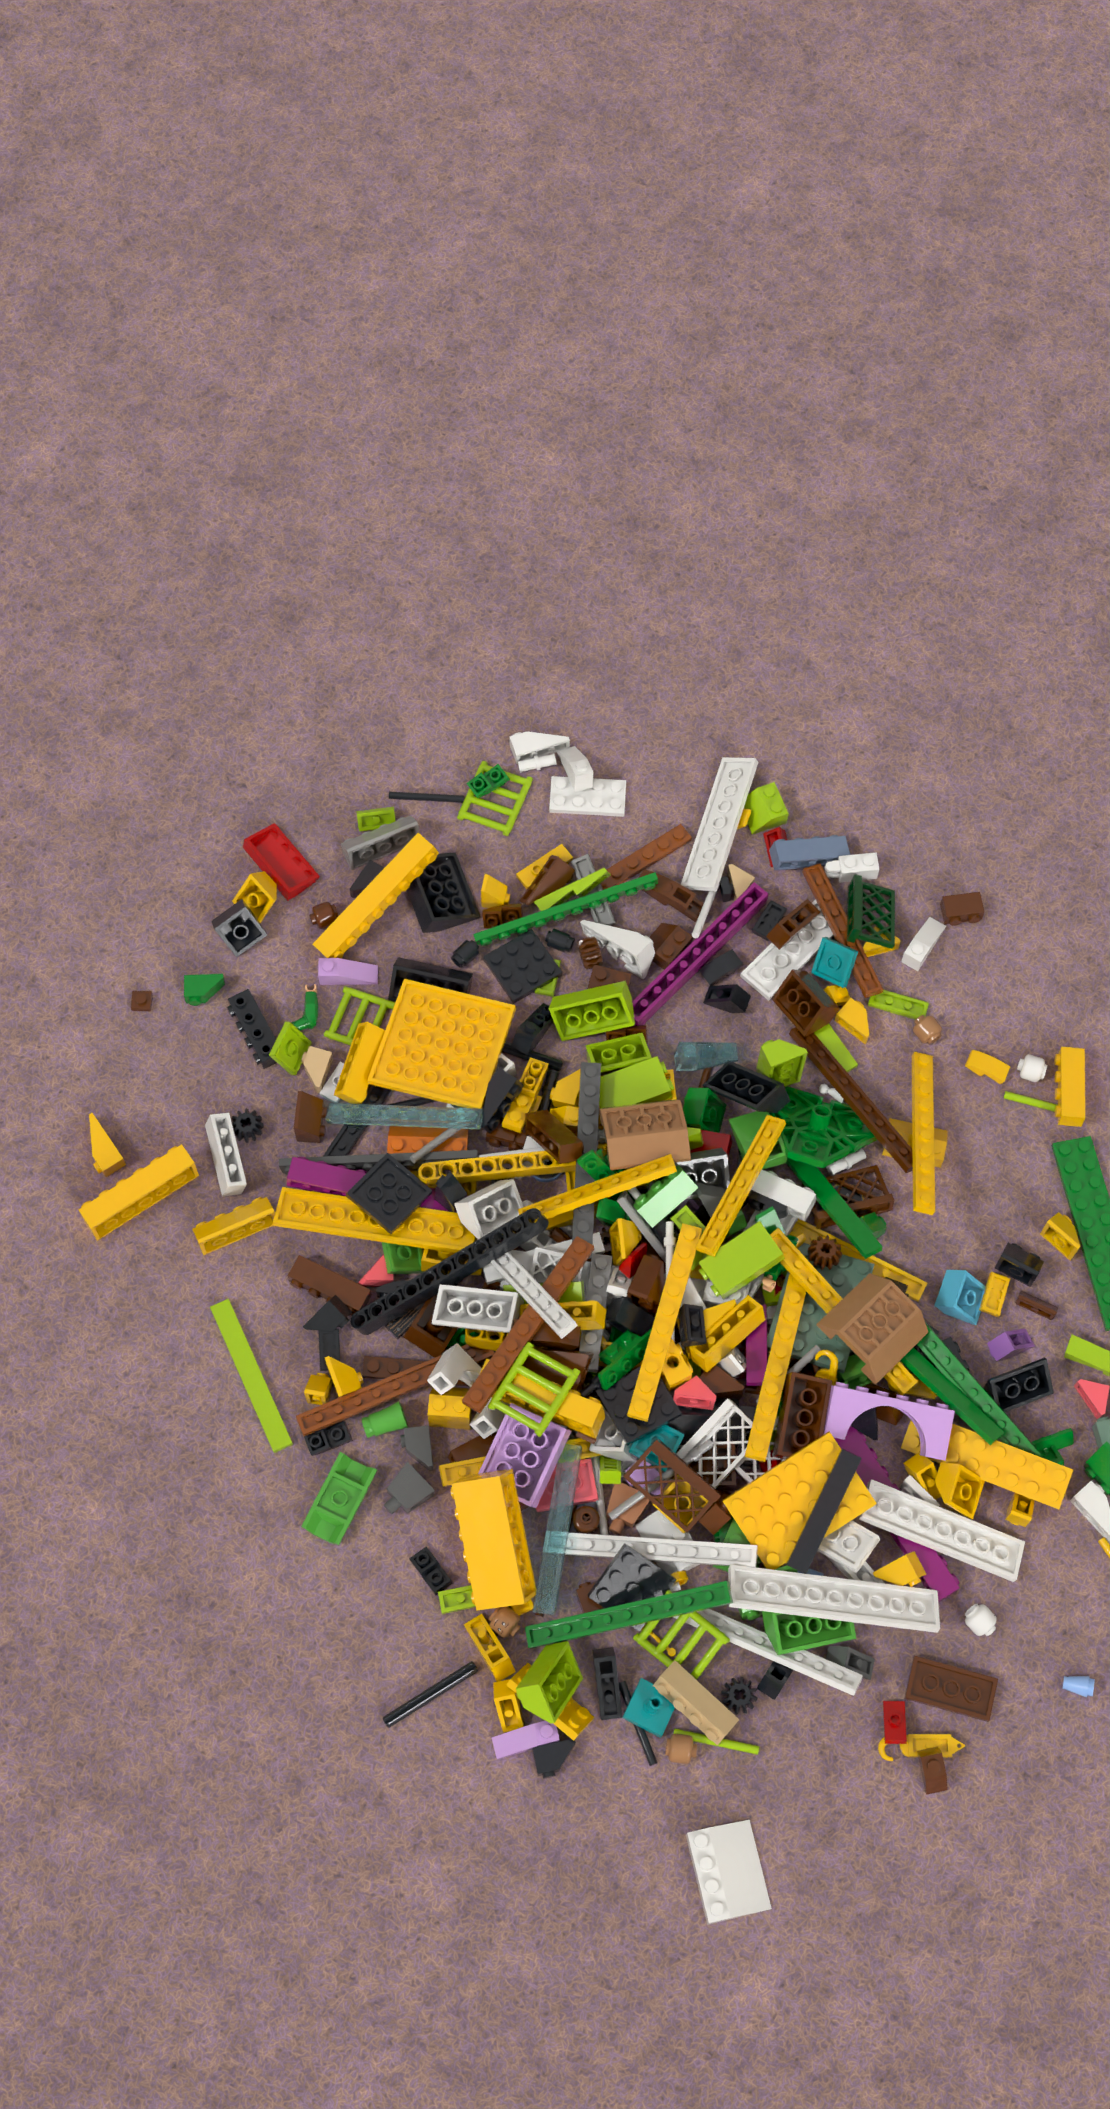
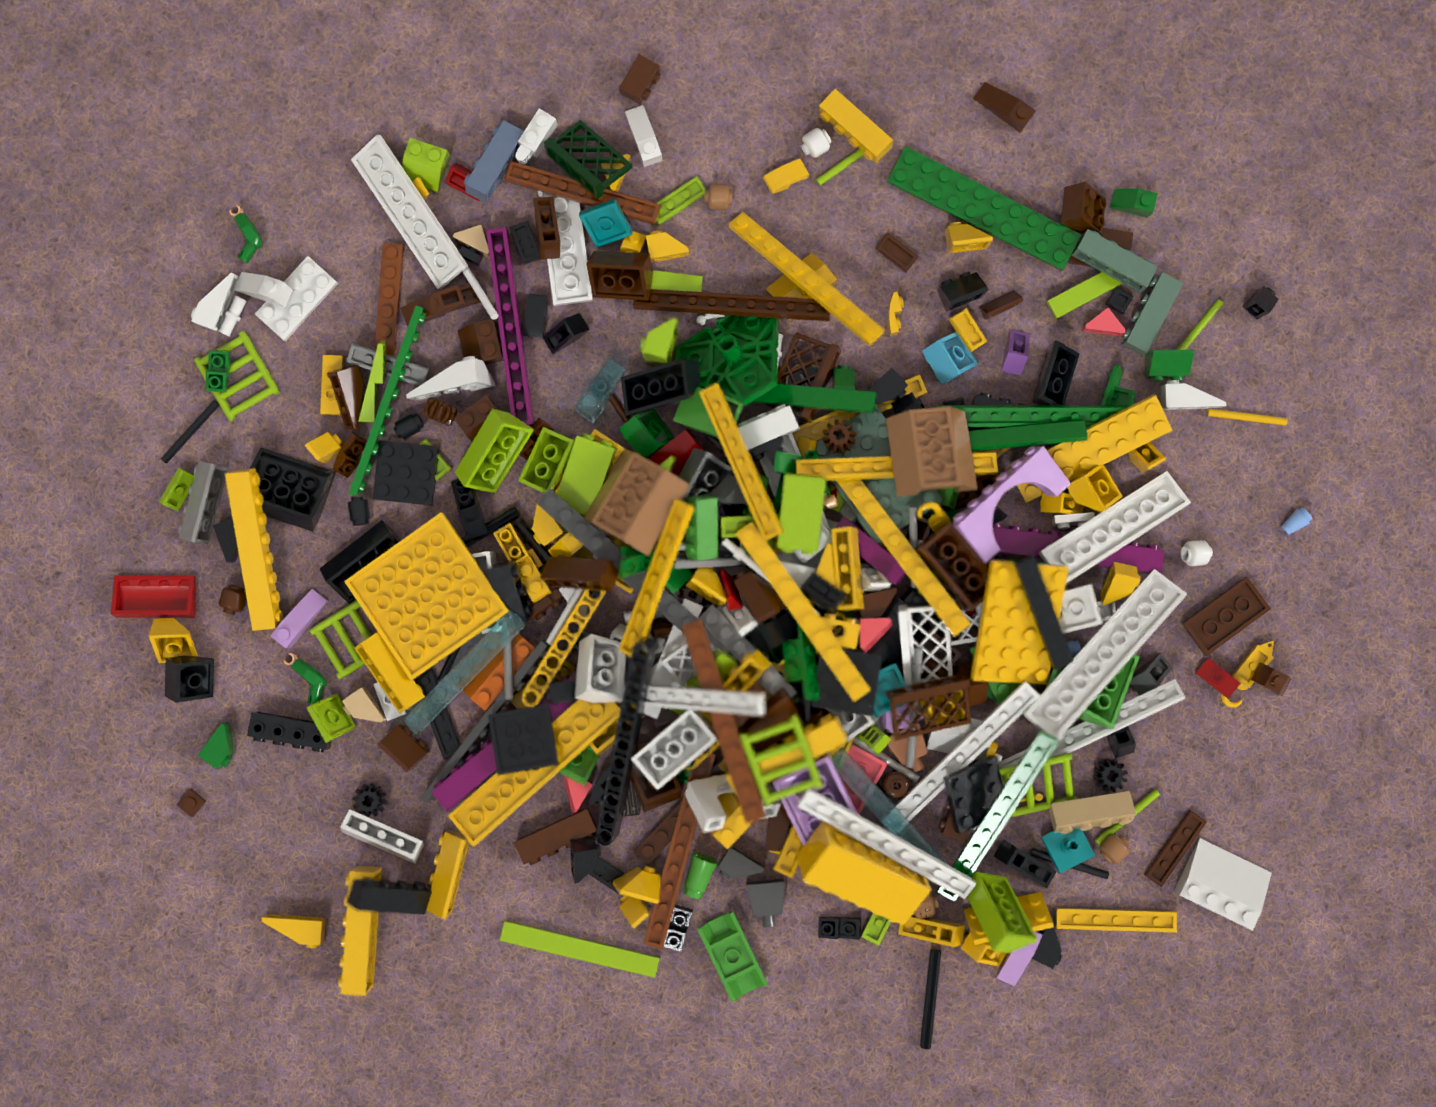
camera: 50 degrees left, 20 degrees up
(184, 1187) = (389, 896): none -> black brick
(534, 1539) = (886, 842): none -> white plate
(607, 732) = (250, 234): none -> green arm
(622, 1801) = (1115, 919): none -> yellow plate
(723, 1805) = (1175, 848): none -> reddish brown tile
(890, 1262) = (888, 387): none -> black slope
(959, 1224) = (895, 307): none -> yellow slope
(1005, 1194) = (896, 252): none -> reddish brown tile

